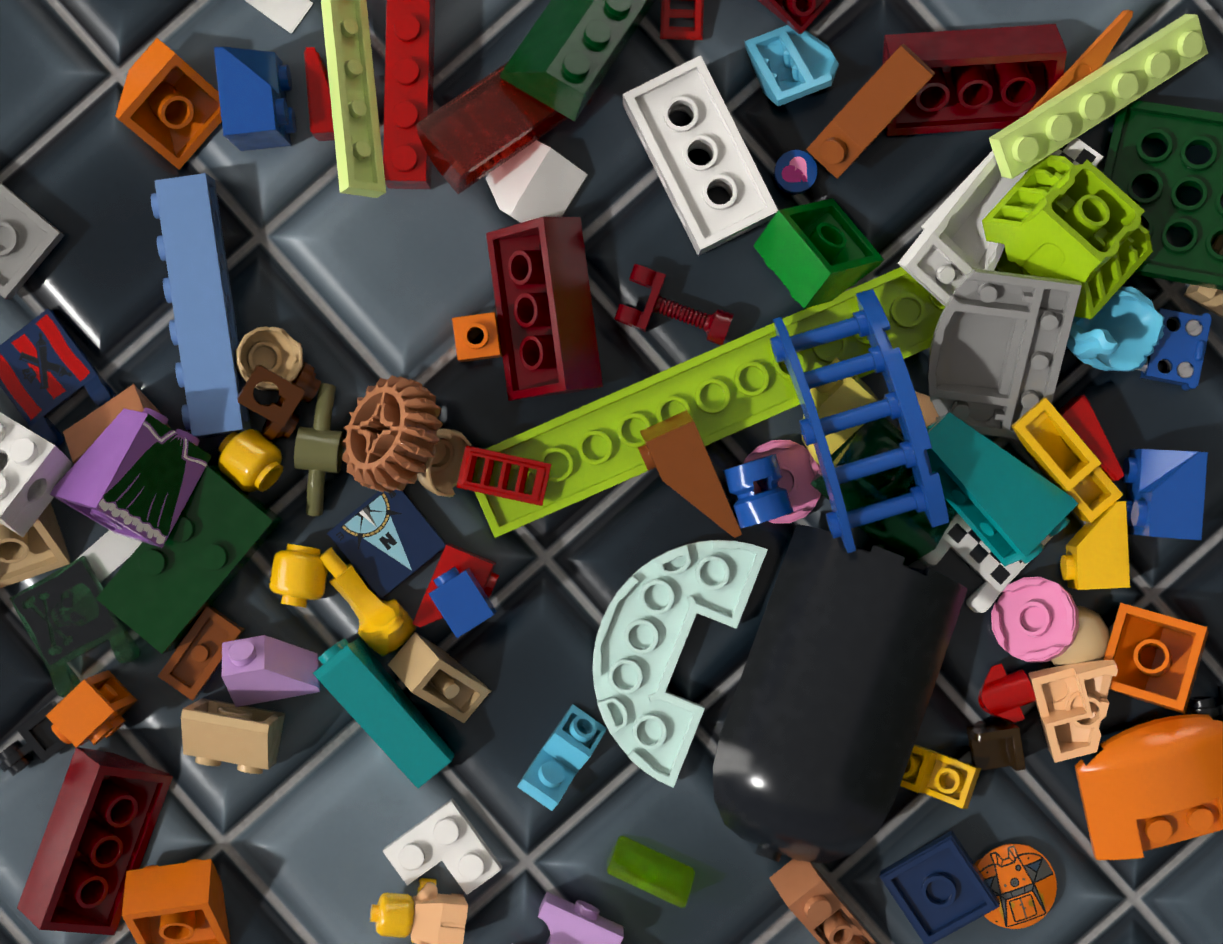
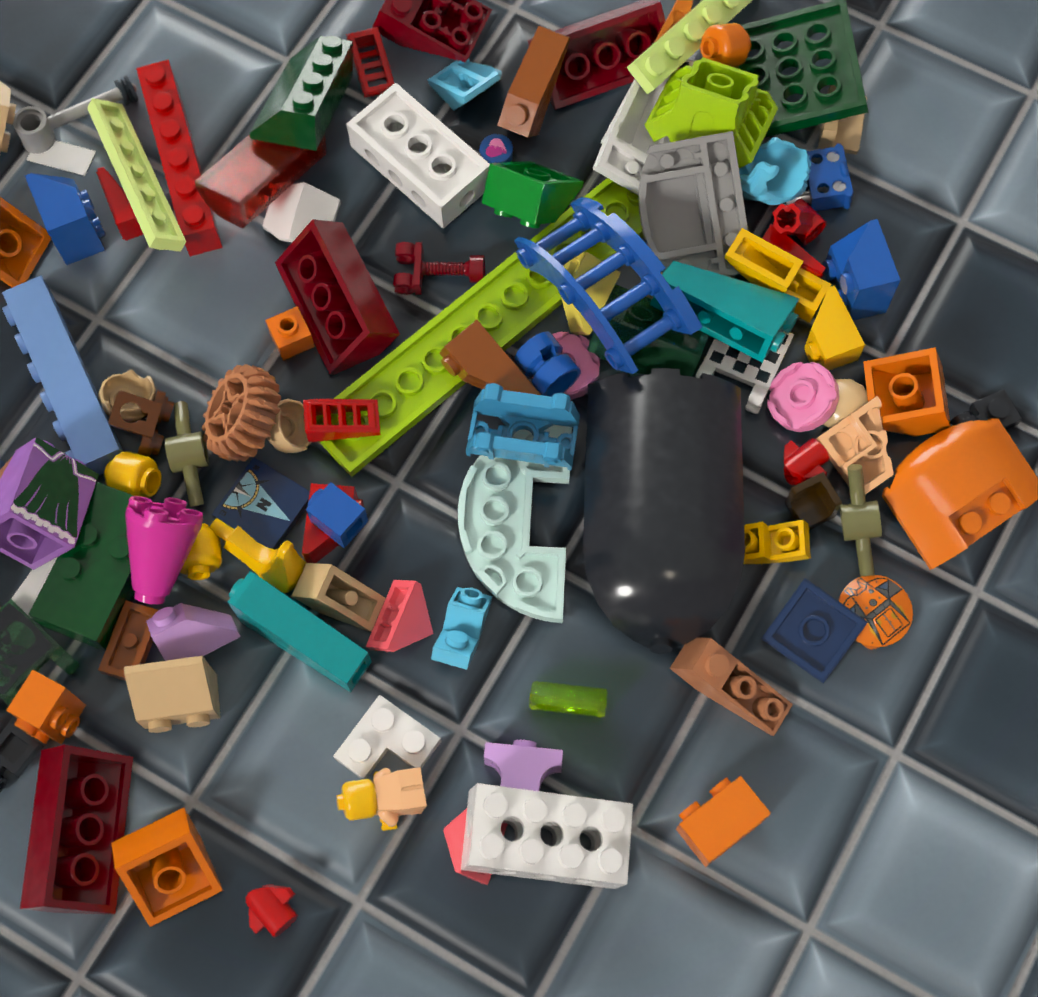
camera: 15 degrees left, 20 degrees down
(258, 570) = (158, 544): none -> dark pink cone
(499, 724) = (402, 618): none -> coral slope
(700, 592) = (528, 413): none -> dark azure piece
(1039, 789) = (860, 520): none -> olive piece
(1117, 399) = (798, 220): none -> red piece
(1123, 139) = (726, 44): none -> orange head

